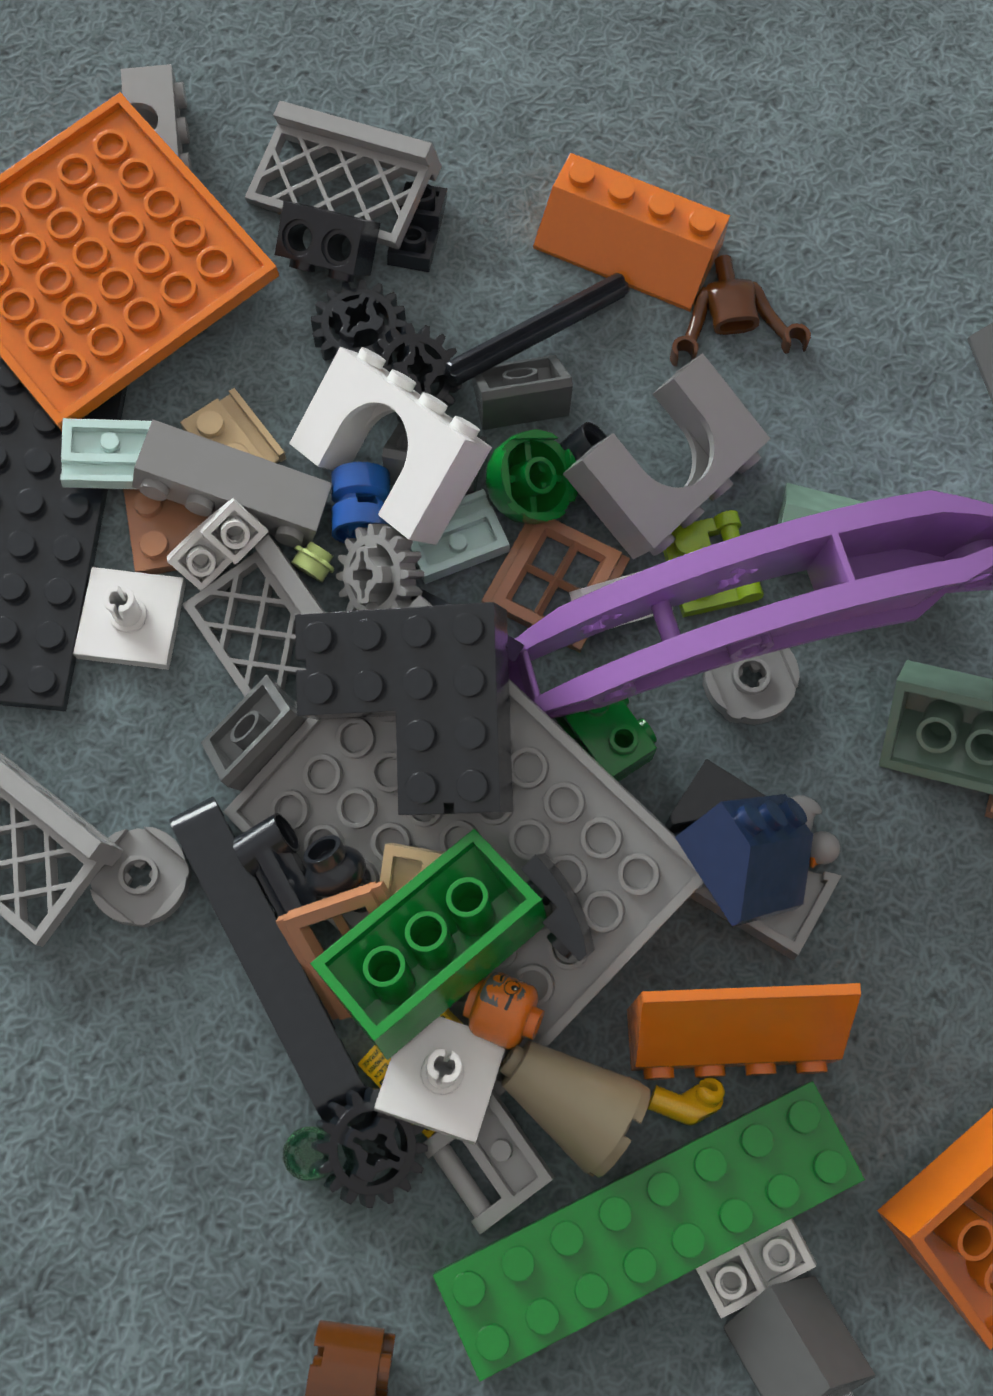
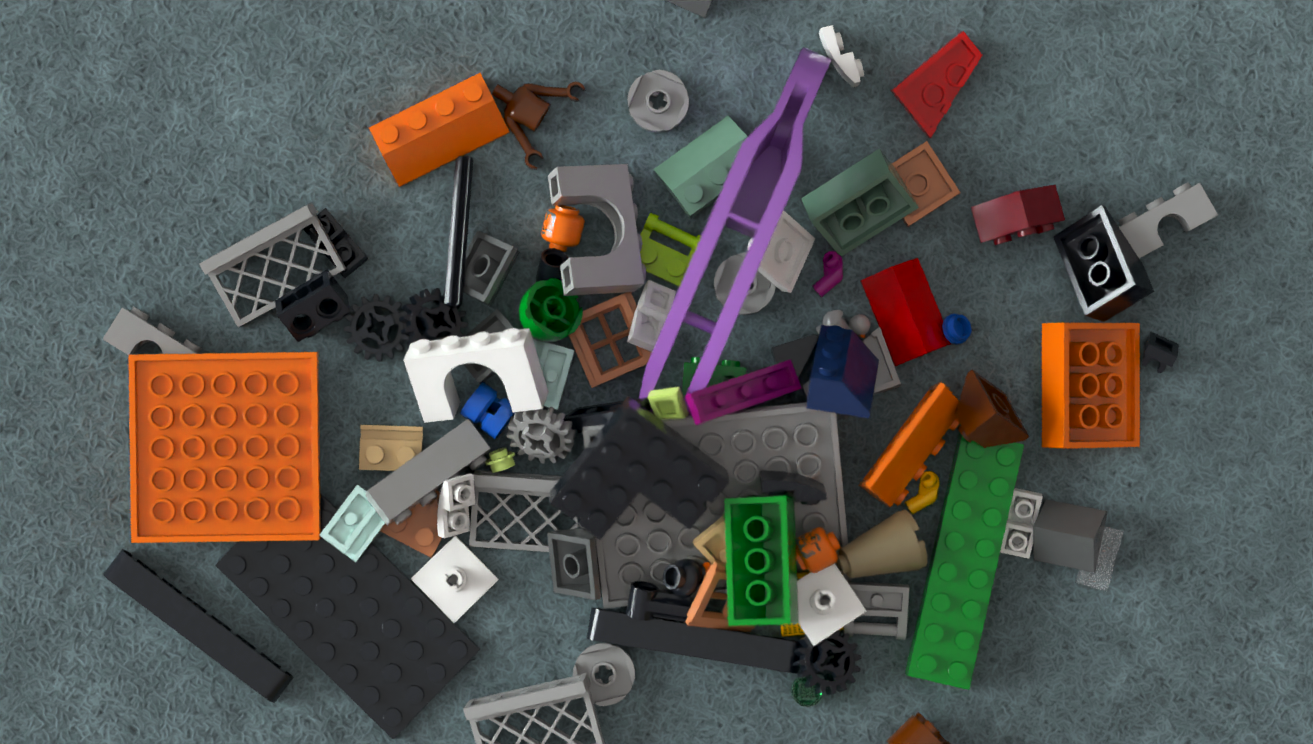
camera: 50 degrees left, 15 degrees up
(536, 672) = (668, 403): none -> yellowish green tile
(625, 749) = (742, 392): none -> magenta plate
(640, 428) = (562, 227): none -> orange head
(830, 681) = (785, 253): none -> white tile
(853, 769) = (832, 273): none -> magenta arm
(860, 452) = (665, 117): none -> light grey plate
(860, 1095) = (987, 414): none -> reddish brown slope
(887, 894) = (905, 311): none -> red slope
(923, 972) = (956, 328): none -> blue plate

